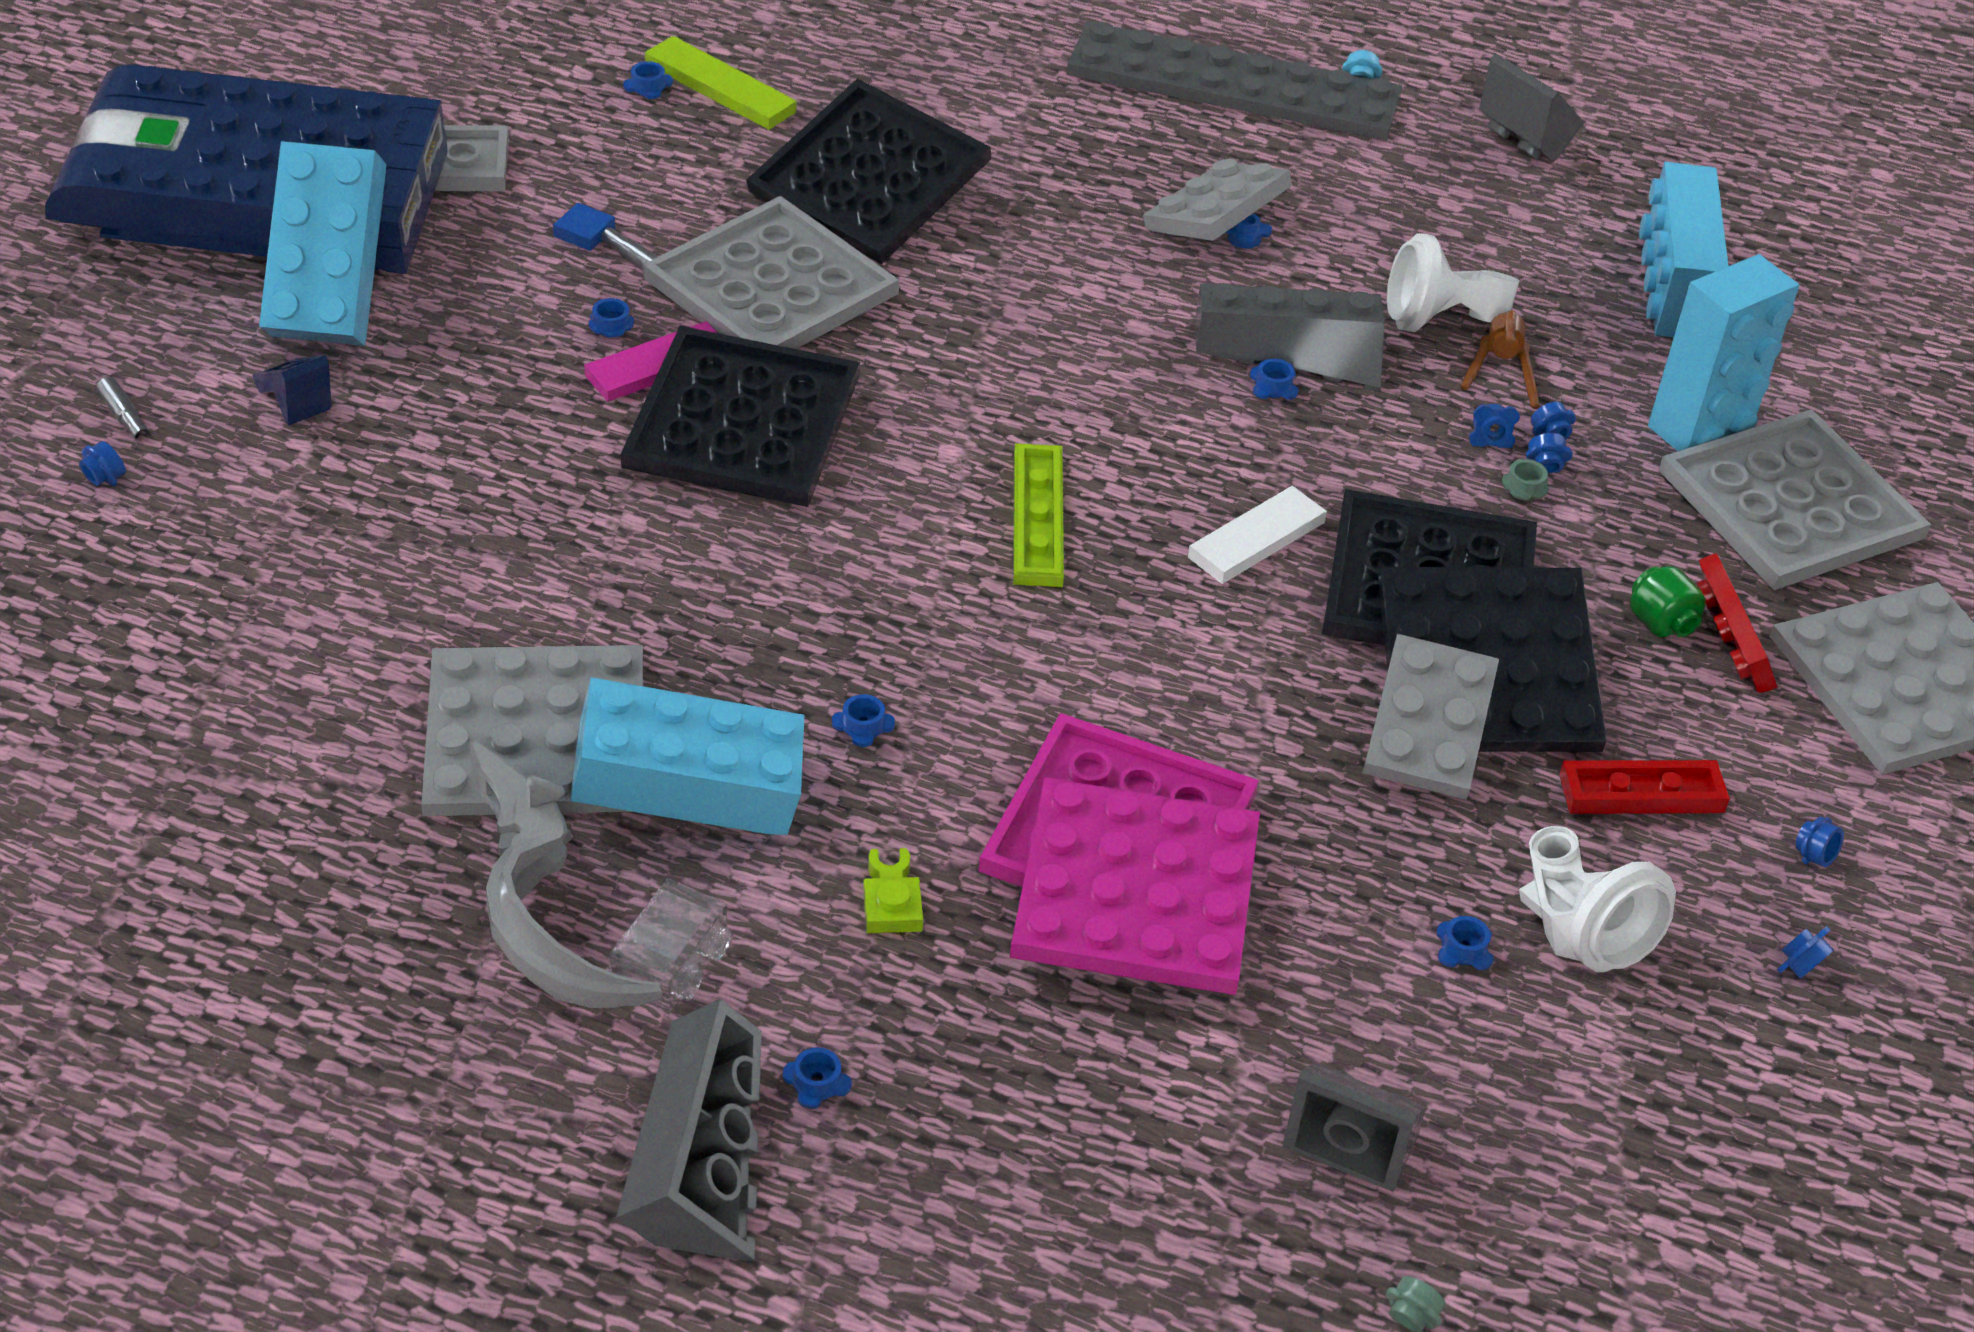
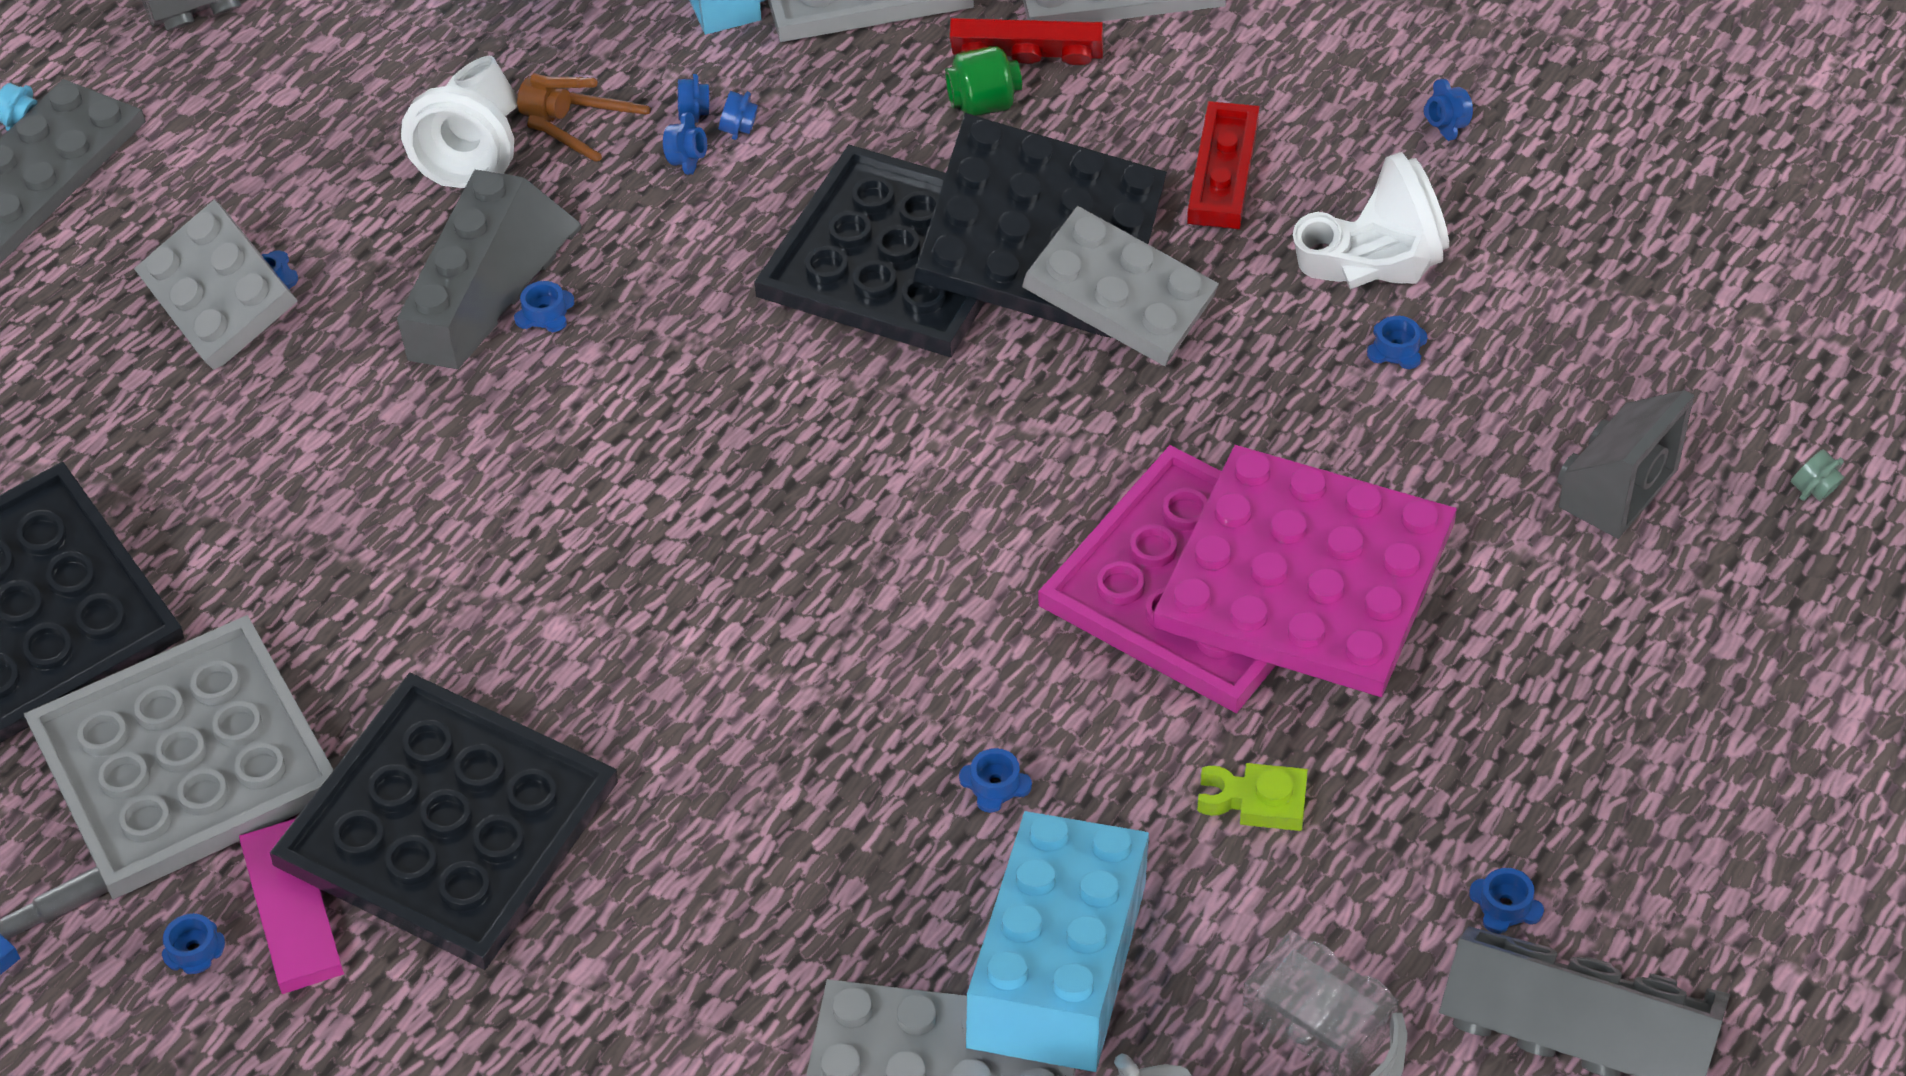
camera: 70 degrees left, 5 degrees up
(1038, 515) = (697, 562): lime tile -> none
(1256, 534) = (786, 377): white tile -> none
(1526, 480) = (771, 141): sand green plate -> none
(1819, 841) = (1313, 64): blue plate -> none

